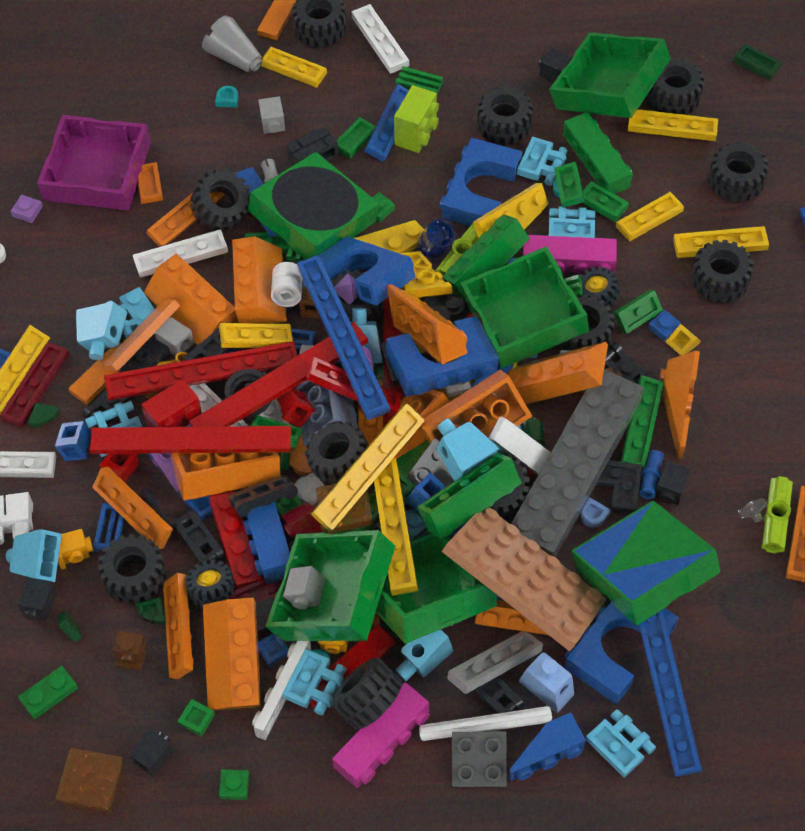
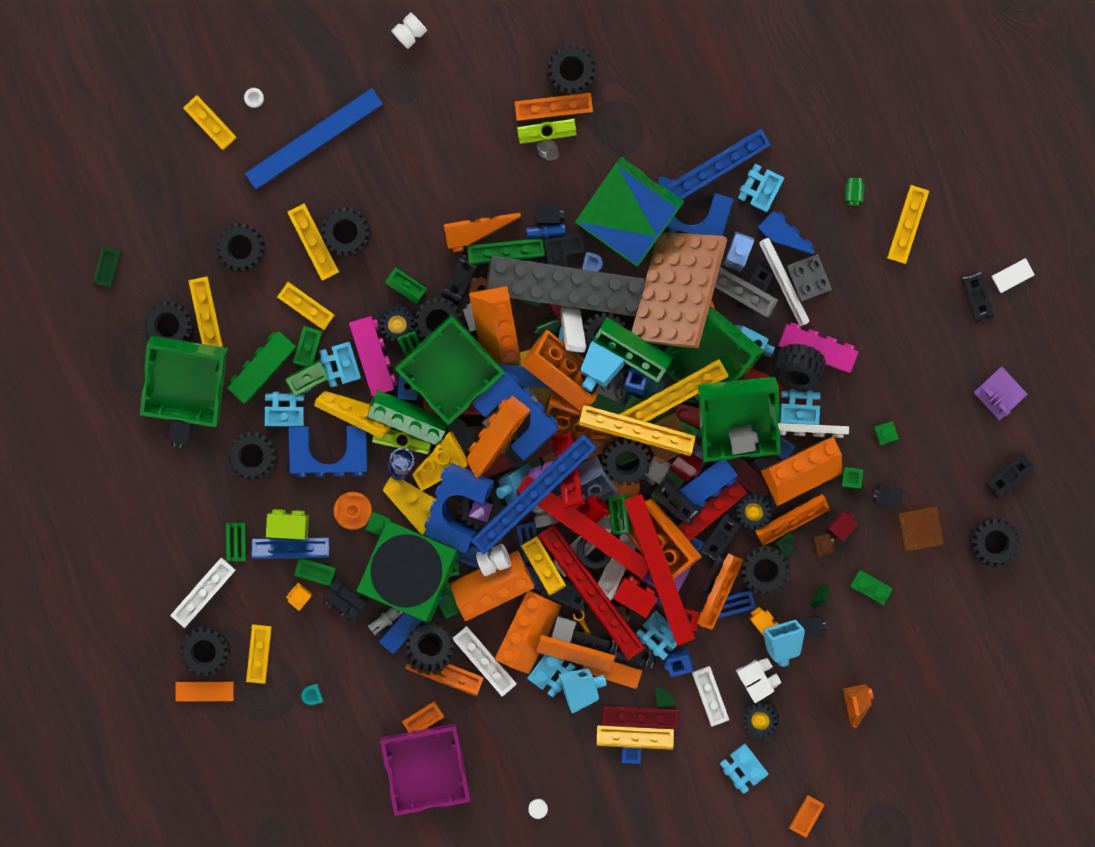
camera: 115 degrees left, 30 degrees up
(26, 208) = (486, 805): medium lavender plate -> none
(141, 682) = (843, 525): none -> dark red brick
(232, 45) = (264, 710): light grey cone -> none
(271, 115) = (322, 647): light grey brick -> none
(335, 111) = (298, 596): none -> light orange brick
(405, 189) = (352, 510): none -> orange tile
(664, 325) = (408, 261): blue plate -> none
(682, 340) = (416, 243): yellow slope -> none

